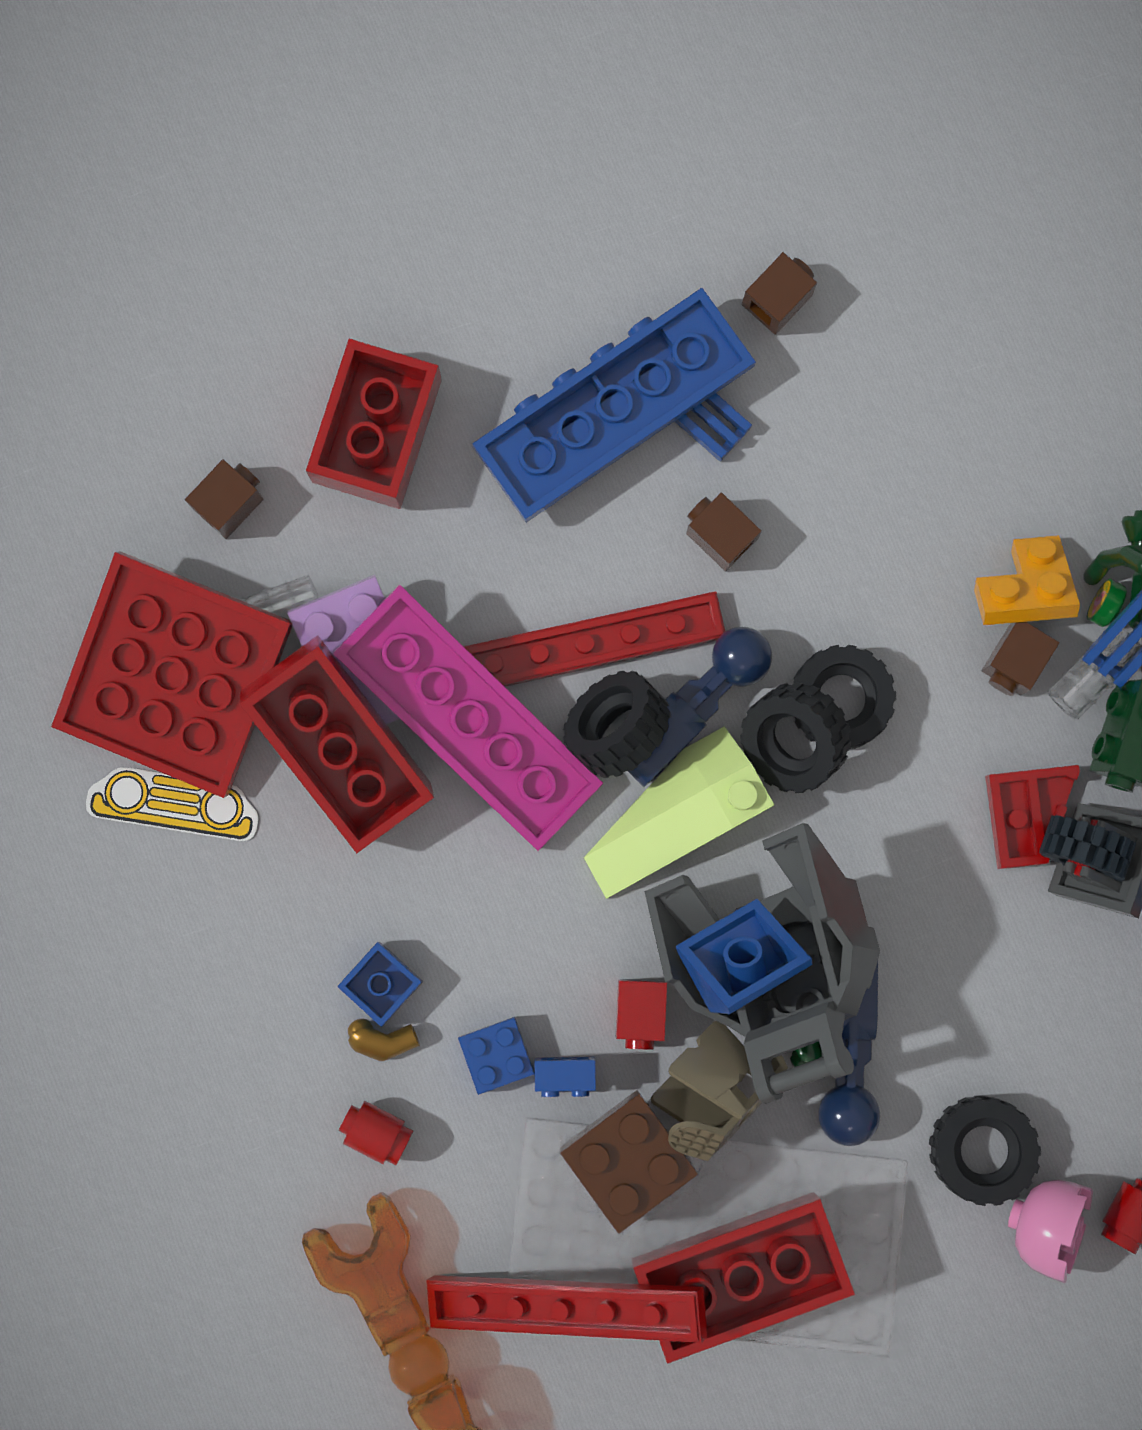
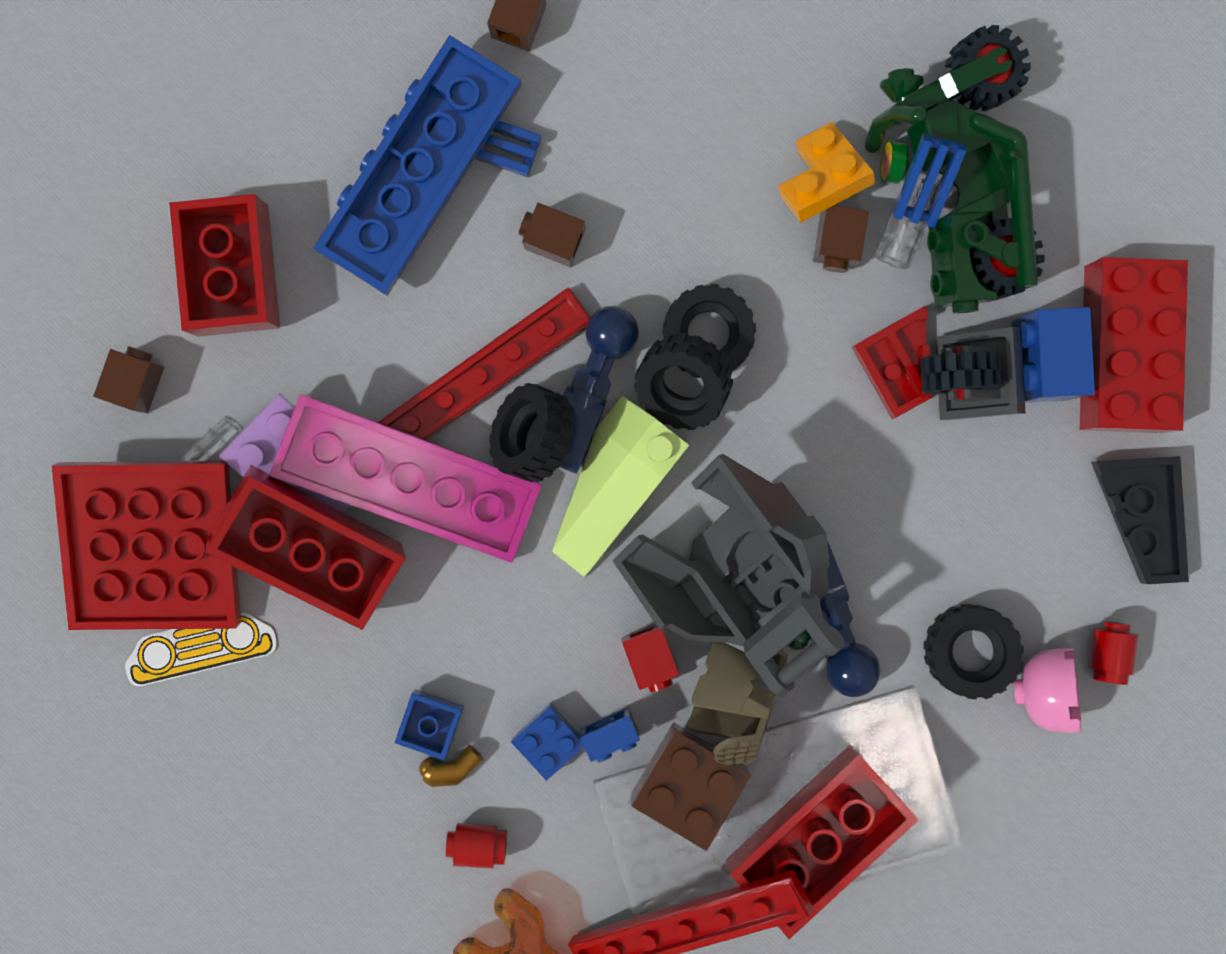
camera: 25 degrees left, 5 degrees up
(741, 958) = (714, 585): blue slope -> none

